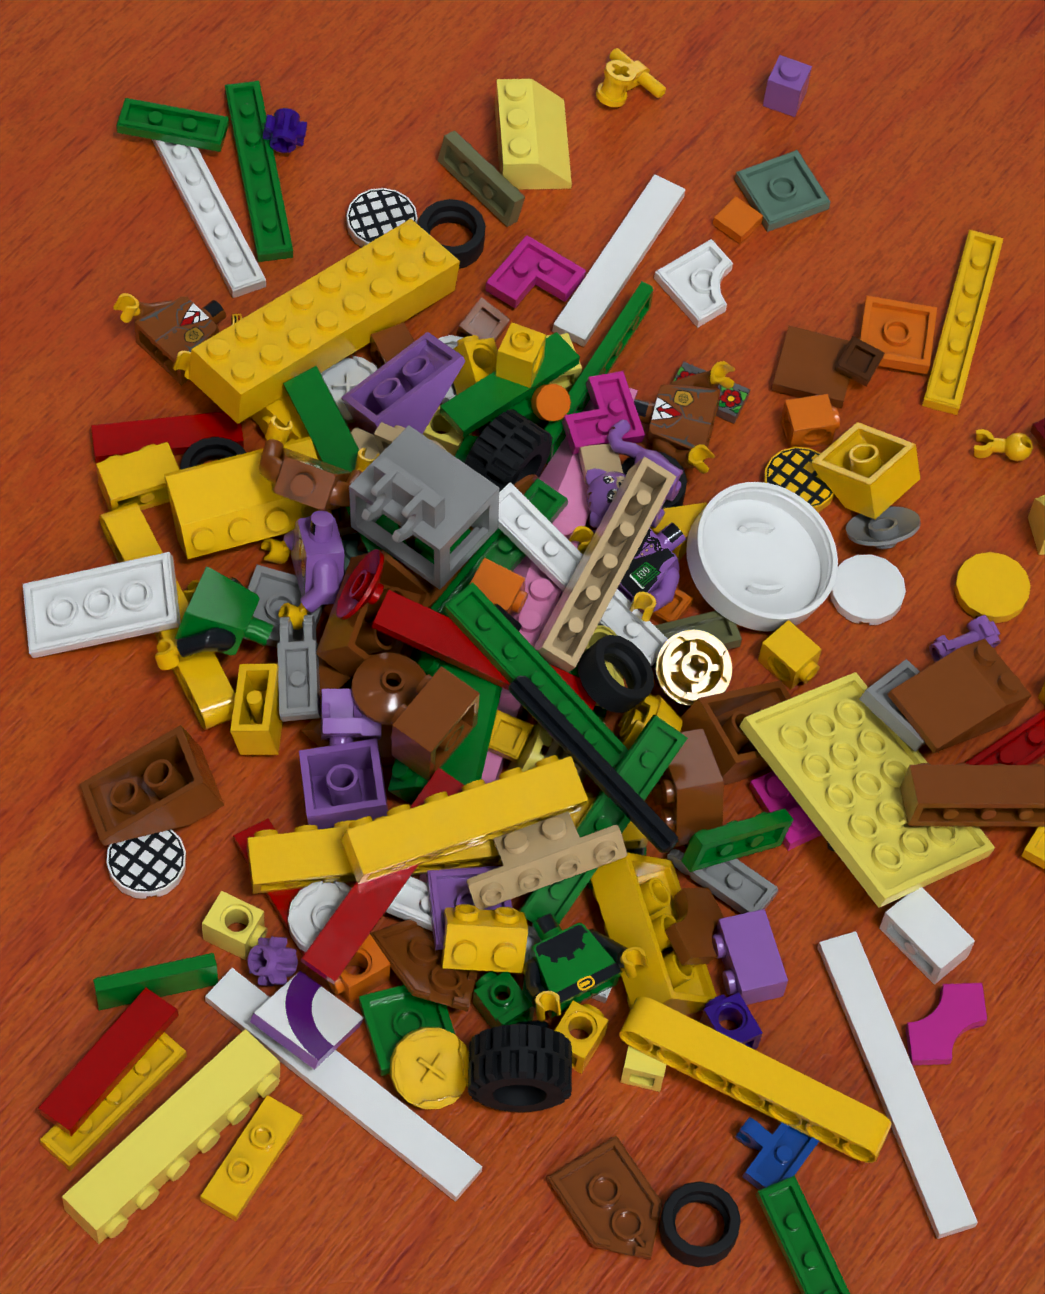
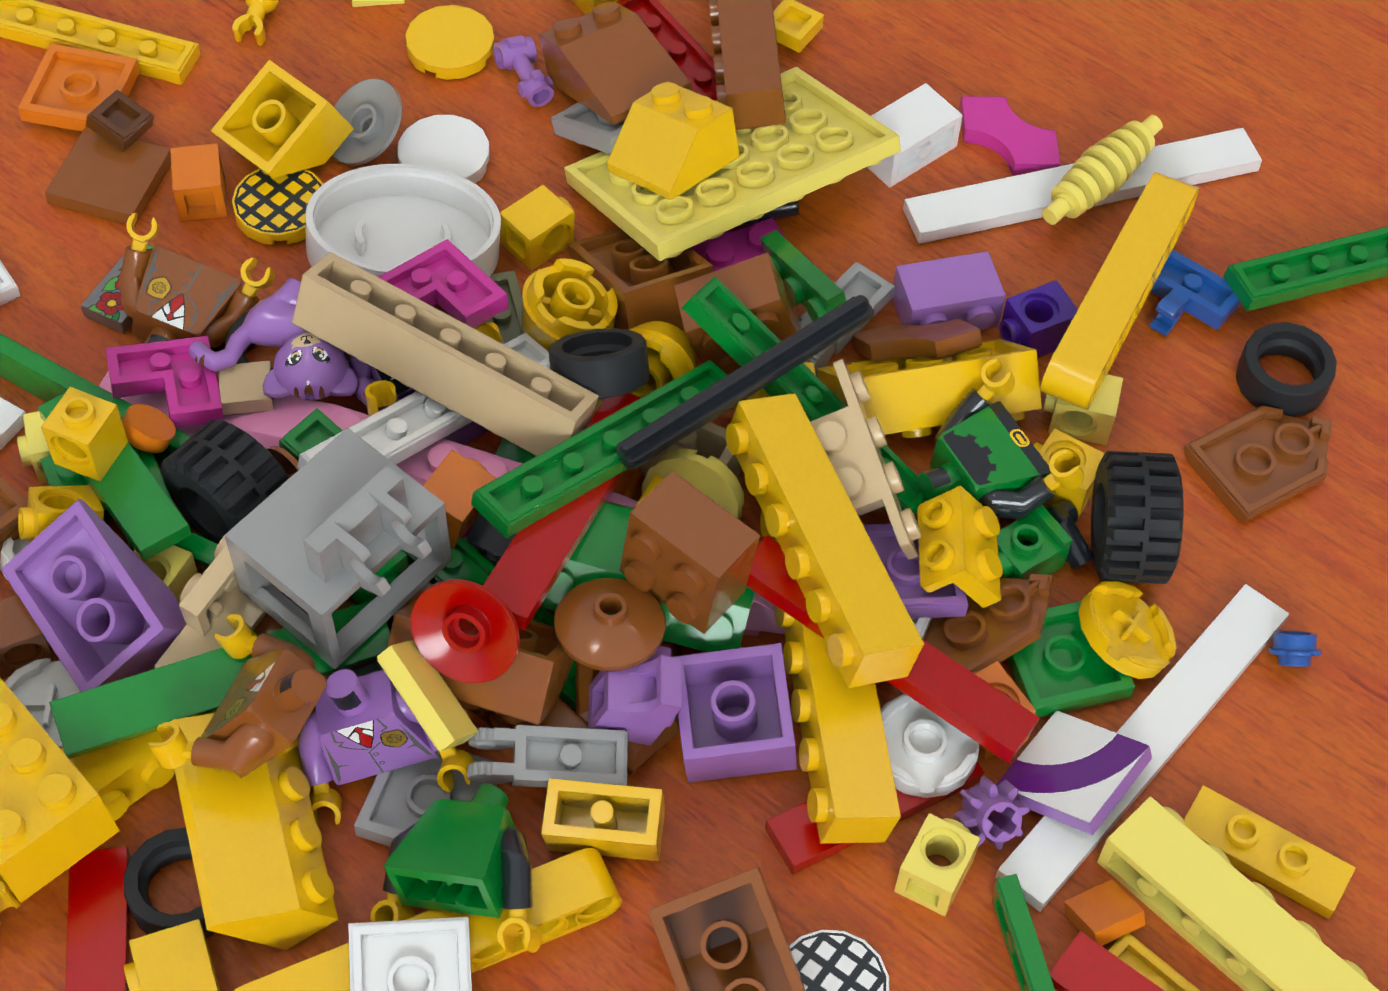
camera: 85 degrees left, 5 degrees down
(198, 1036) = (1104, 912): none -> orange tile
(323, 576) = (427, 696): none -> light yellow tile
(424, 1196) = (1294, 647): none -> blue plate
(687, 565) = (452, 281): none -> dark pink plate
(865, 734) = (673, 140): none -> yellow slope
(896, 1083) = (1102, 169): none -> light yellow piece

